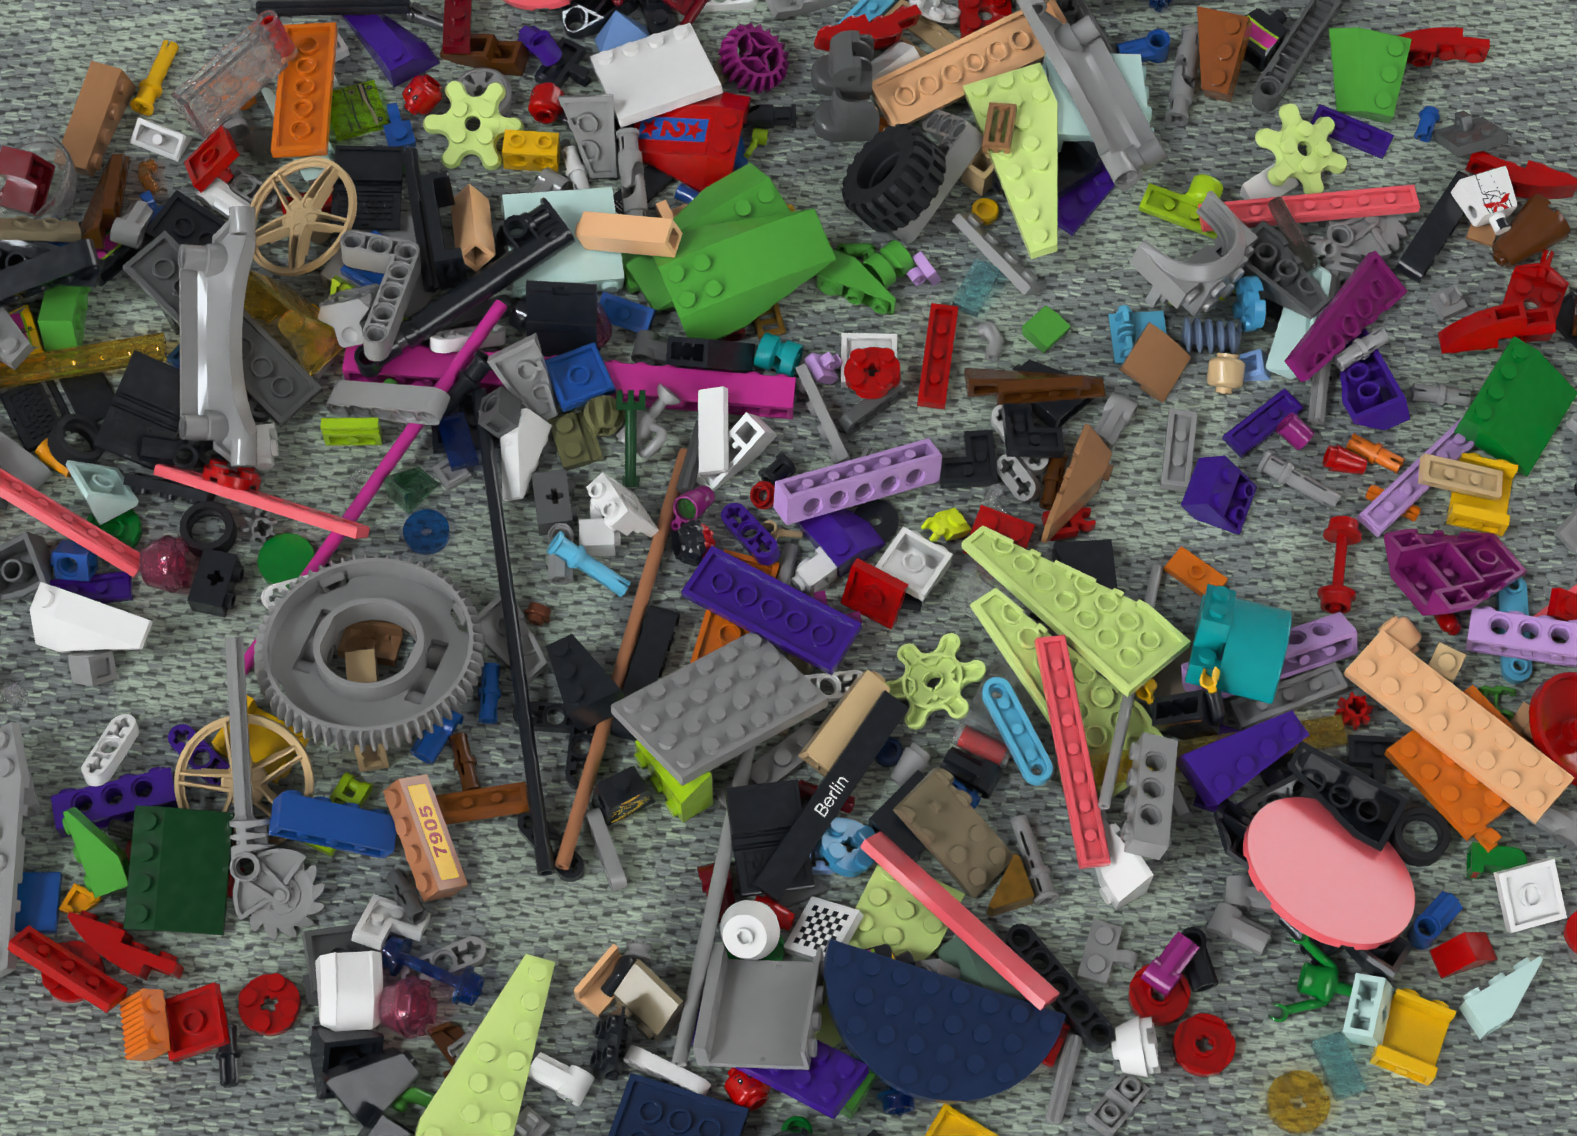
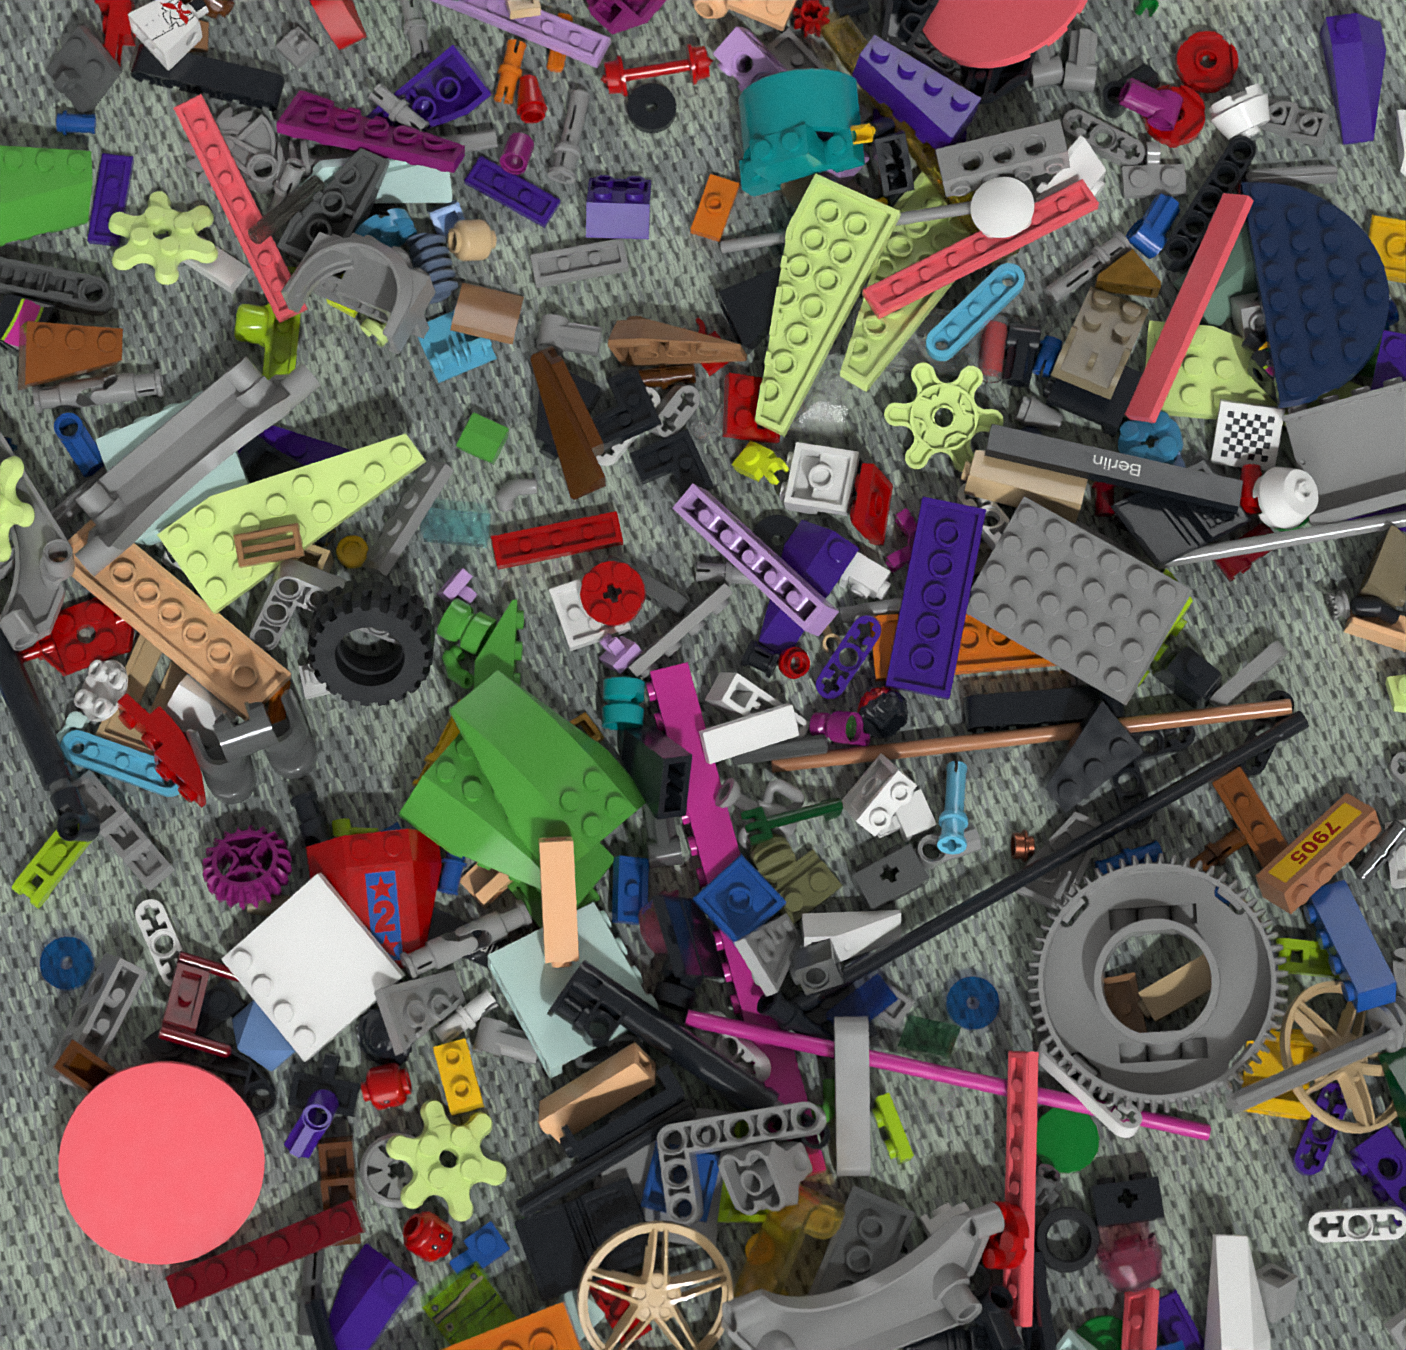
camera: 110 degrees left, 10 degrees up
(1049, 925) = (1149, 232): none -> blue piece
(1101, 773) = (1002, 207): none -> white dish
(1167, 901) = (1127, 141): none -> light grey beam
(1307, 543) = (651, 95): none -> black piece

